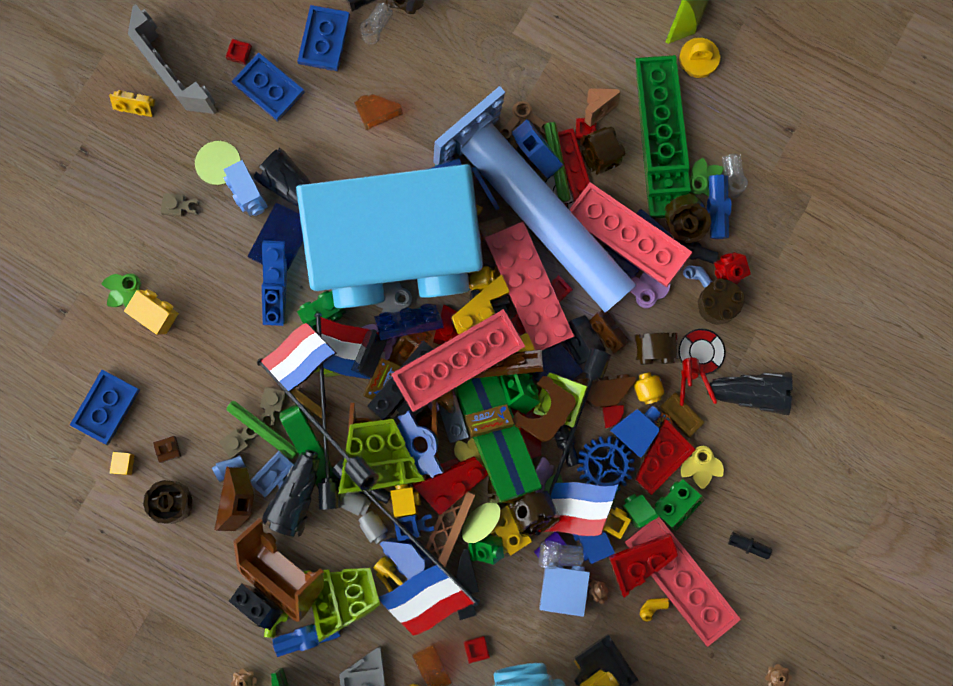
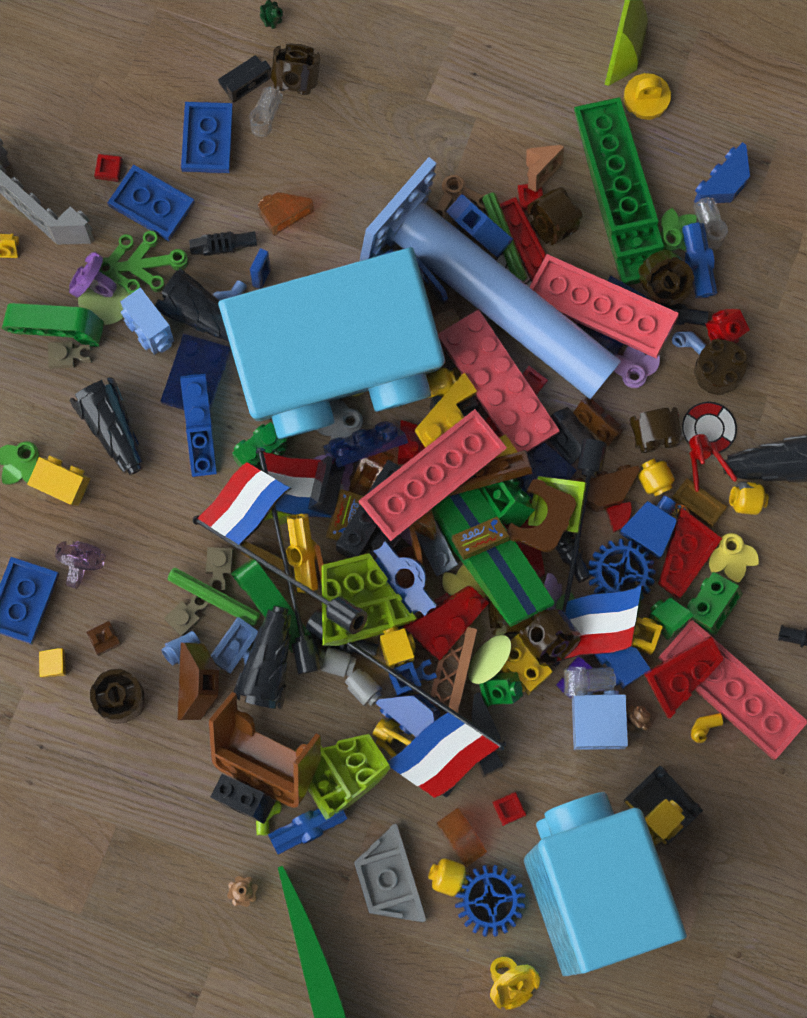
camera: 15 degrees left, 5 degrees down
(156, 381) = (79, 557): none -> tile
(170, 177) = (54, 321): none -> green beam
(201, 268) = (106, 417): none -> black cone
(204, 142) = (91, 278): none -> medium lavender tile
(246, 137) = (137, 264): none -> bright green plant
(319, 177) = (238, 289): none -> medium blue arm
(321, 130) = (221, 243): none -> black hinge
(339, 405) = (302, 551): none -> yellow piece
(347, 158) = (260, 268): none -> blue tile
(724, 418) = (748, 498): none -> yellow head
(754, 139) = (727, 178): none -> blue slope

